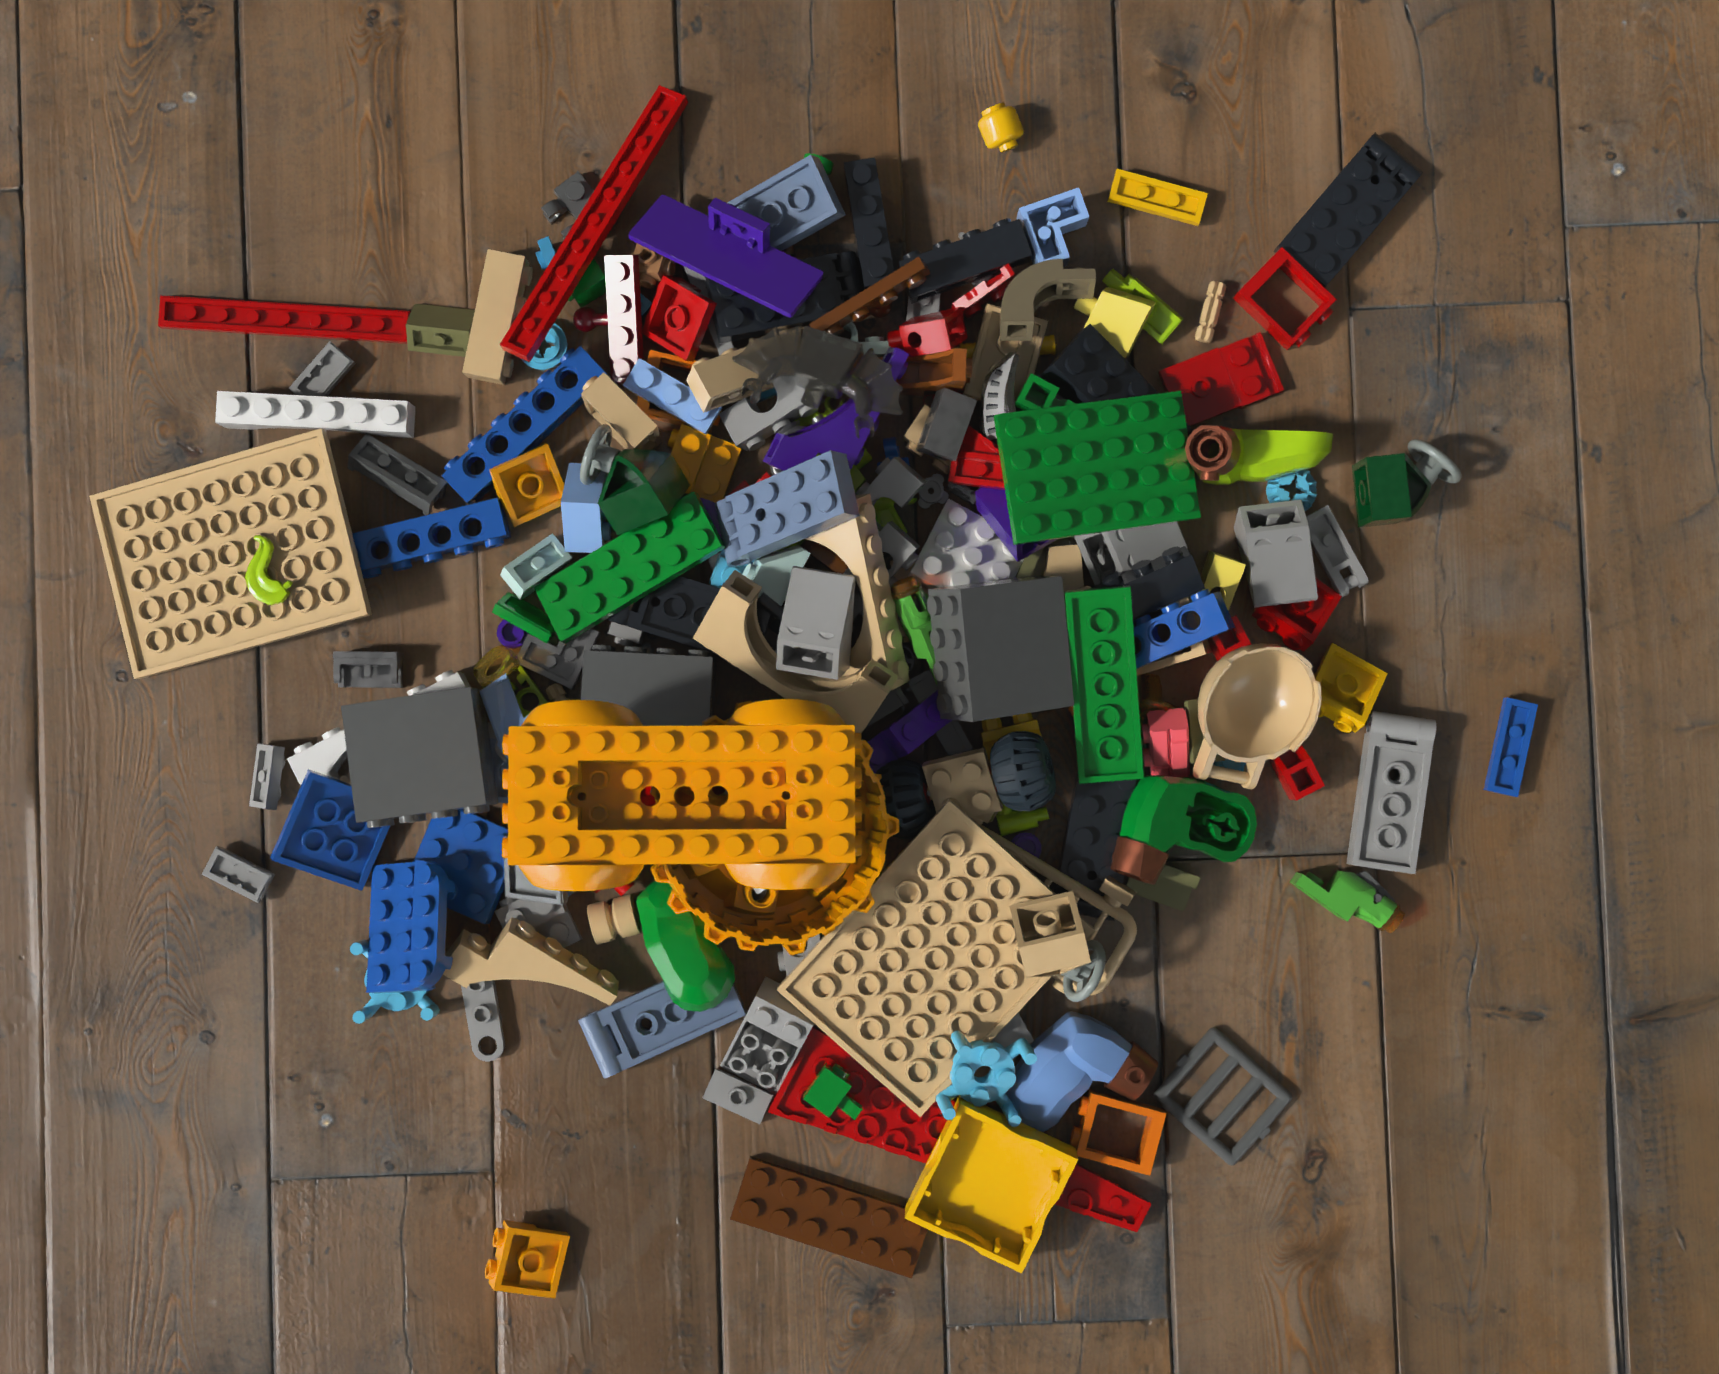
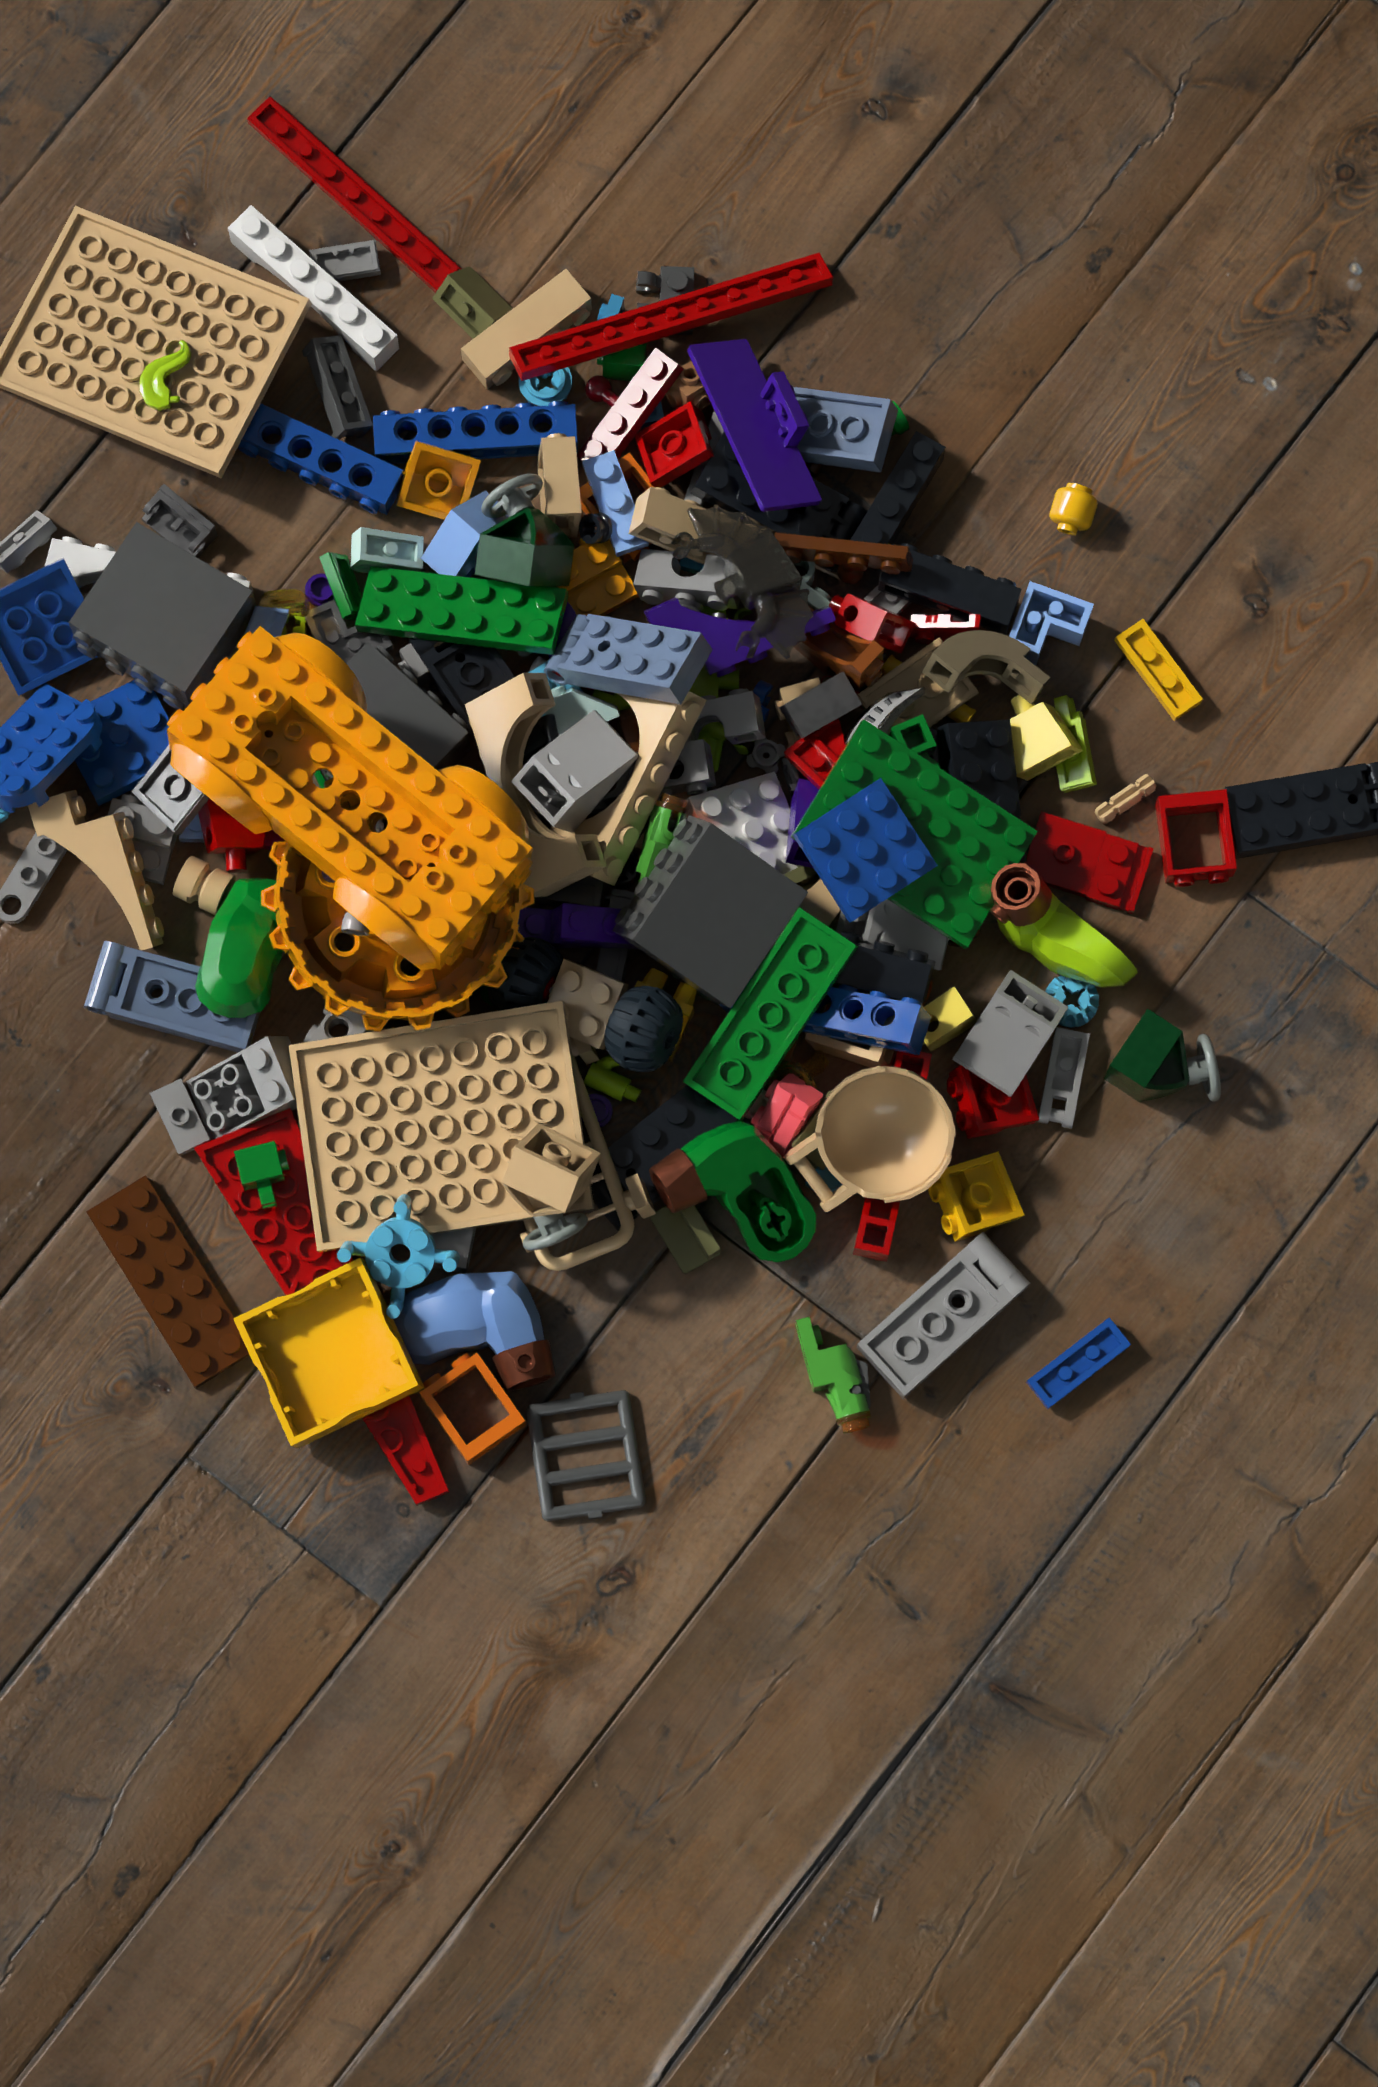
camera: 35 degrees right, 10 degrees down
(673, 435) = (588, 524): none -> black bush
(1078, 511) = (865, 850): none -> blue plate

